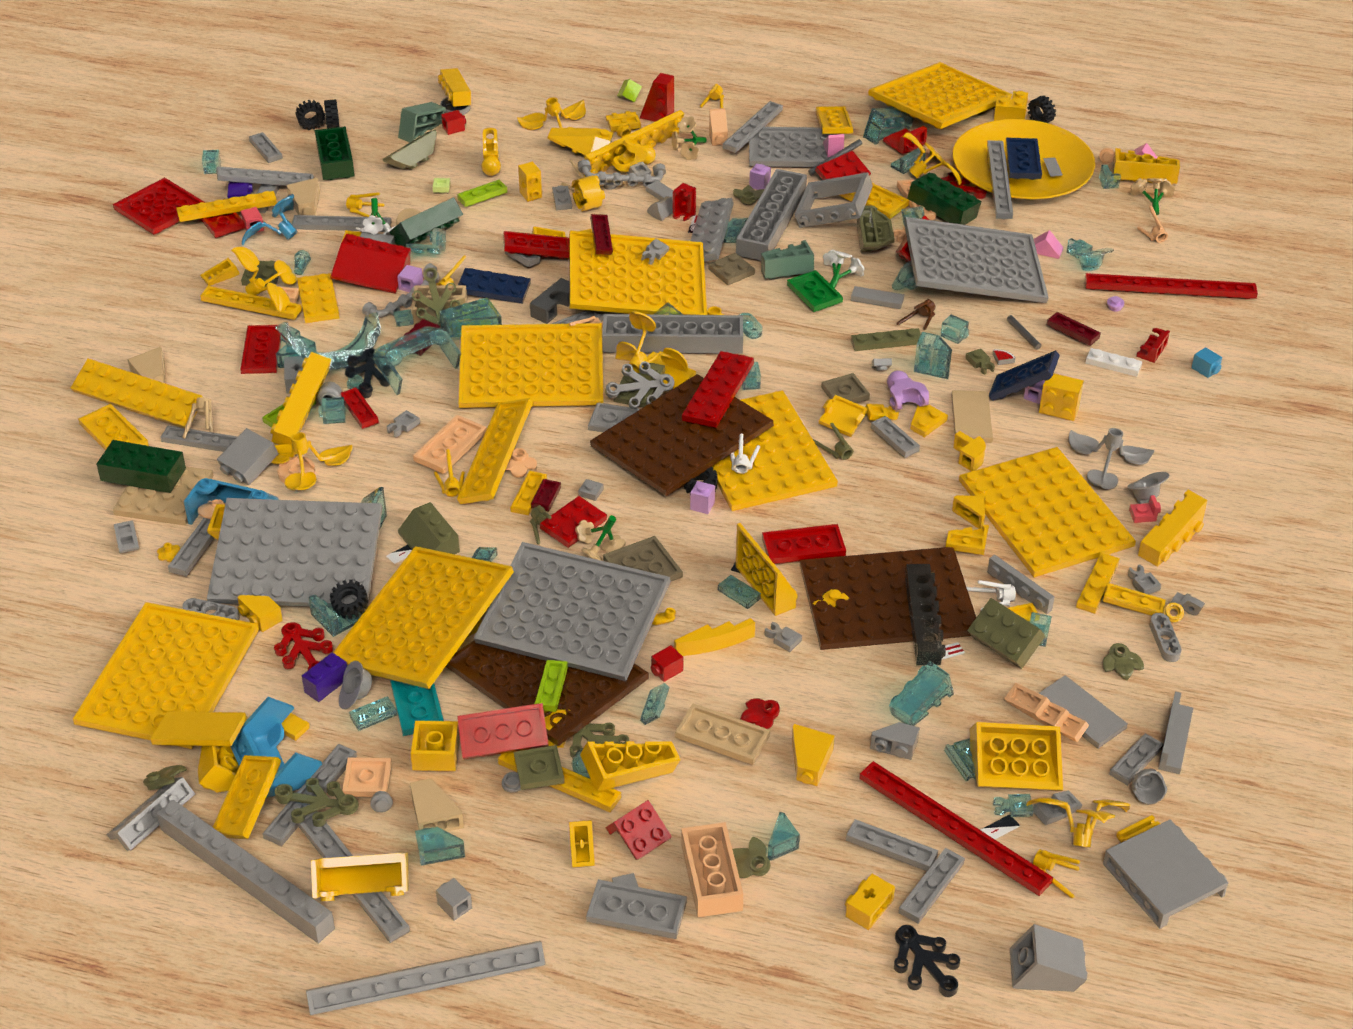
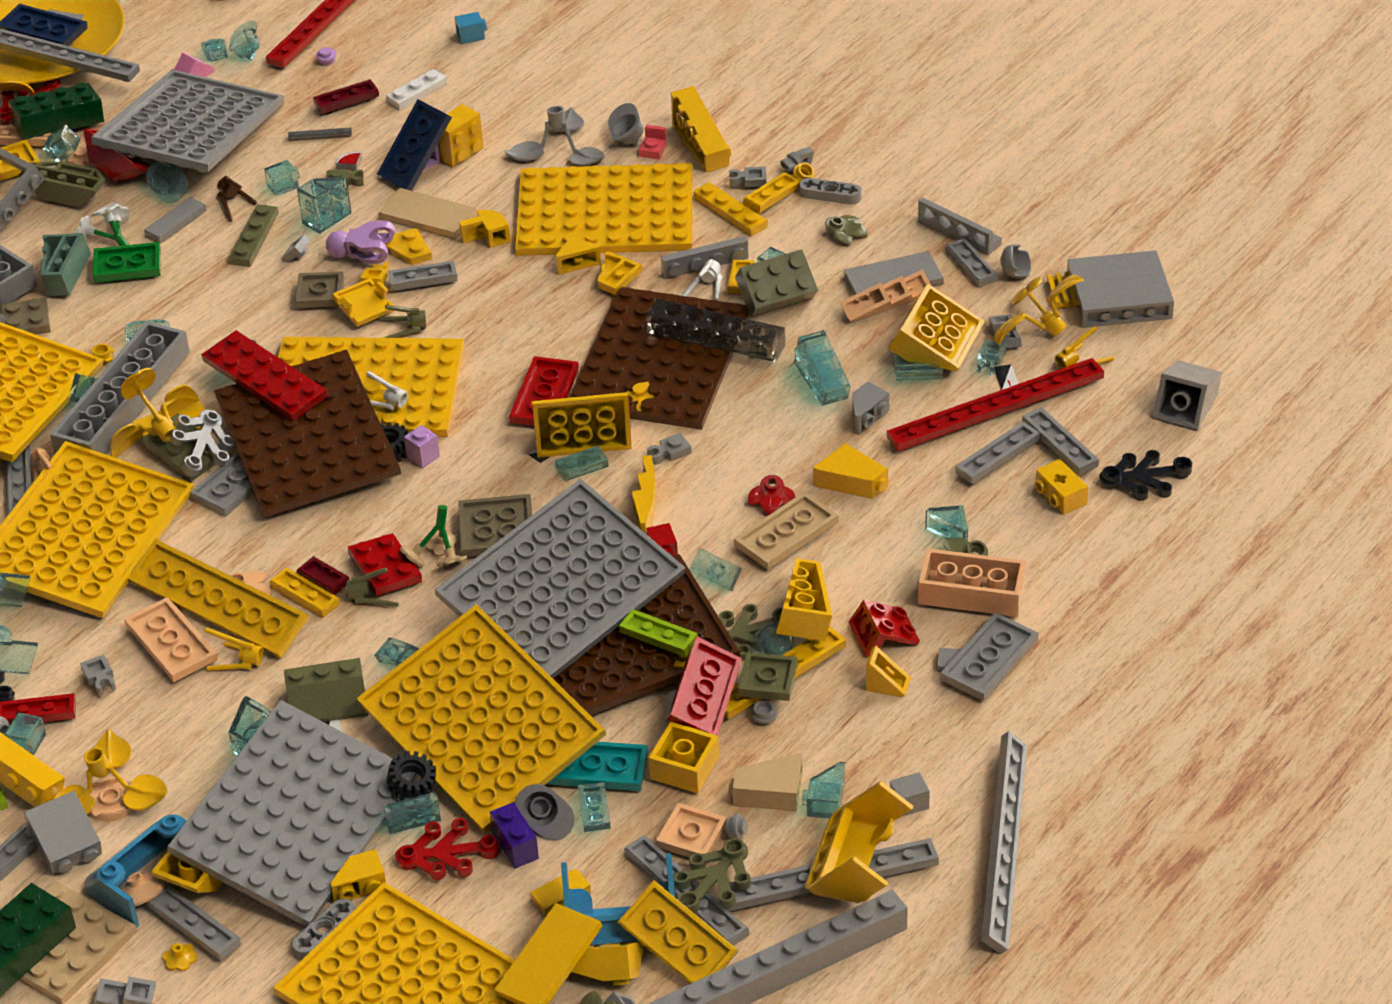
camera: 65 degrees left, 0 degrees up
(591, 489) = (337, 538): light grey plate -> none
(1154, 345) = (415, 52): red hinge -> none

